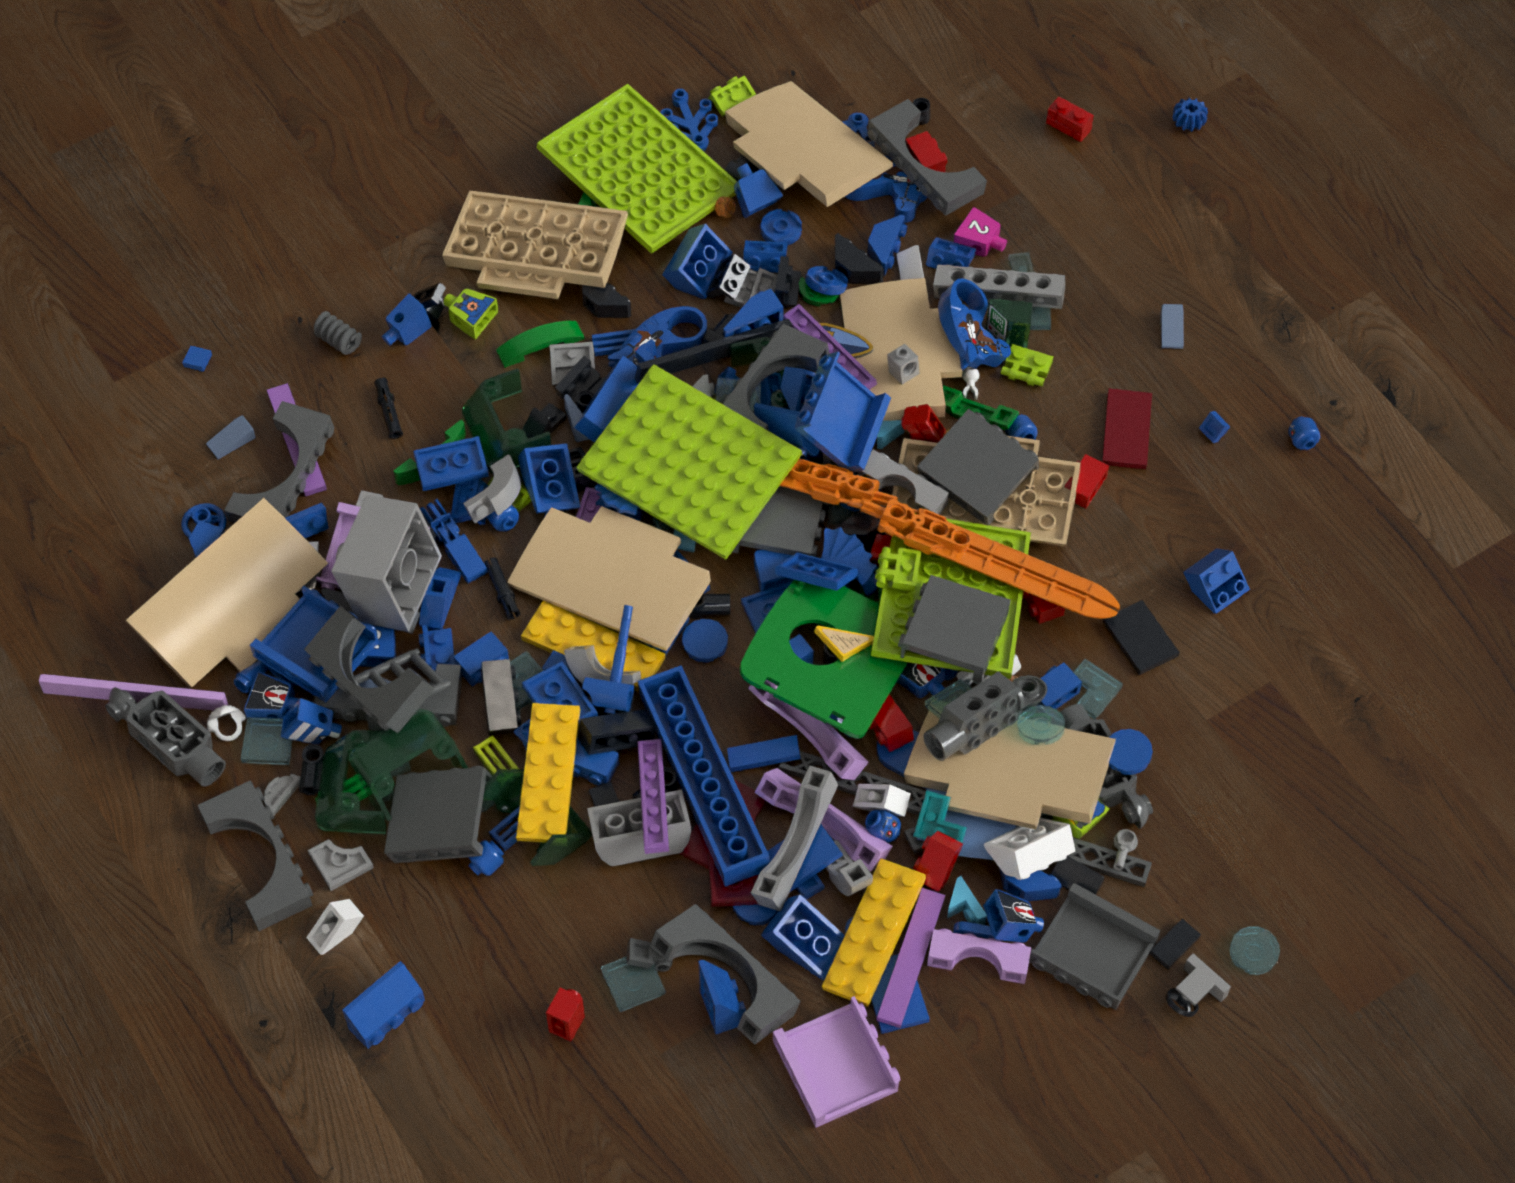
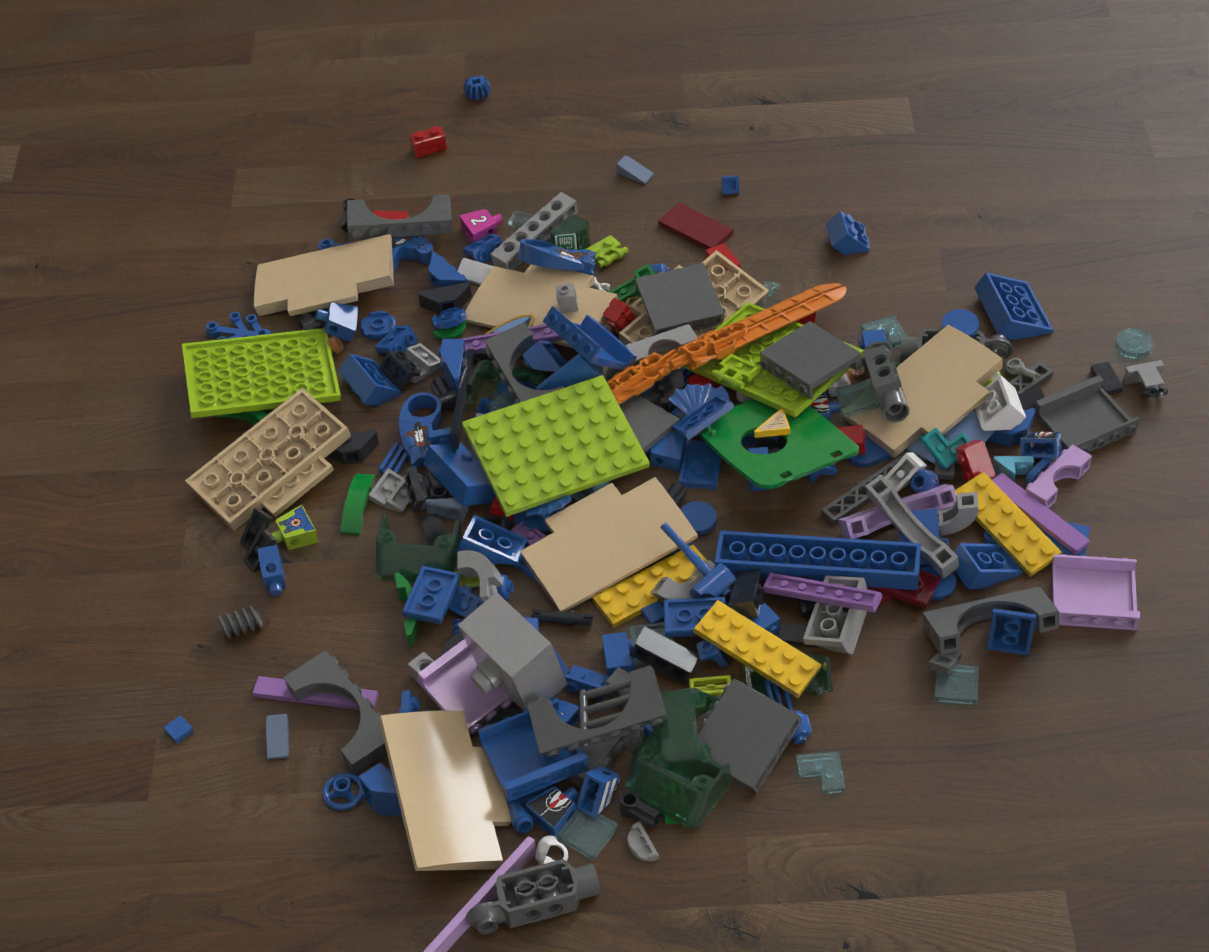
camera: 55 degrees left, 10 degrees down
(285, 890) = (647, 869): dark grey arch -> none
(334, 925) = (793, 854): white slope -> none
(339, 864) = (734, 831): light grey tile -> none
(383, 389) = (331, 618): black pin -> none
(383, 1005) = (890, 847): blue slope -> none
(452, 279) = (258, 520): none -> black slope
(458, 907) = (824, 765): none -> clear light blue tile
(565, 1013) = (969, 729): red brick -> none
(732, 94) = (240, 299): lime bracket -> none
(763, 753) = (821, 517): blue tile -> none
(787, 283) = (427, 337): black bracket -> none
(831, 745) = (819, 484): lavender arch -> none
(1041, 725) = (910, 357): clear light blue tile -> none
(1080, 544) = (771, 286): none -> clear light blue tile
(1141, 637) = (864, 292): black tile -> none
(1219, 798) = (1012, 307): none -> blue slope
(1304, 433) = (768, 147): blue head -> none

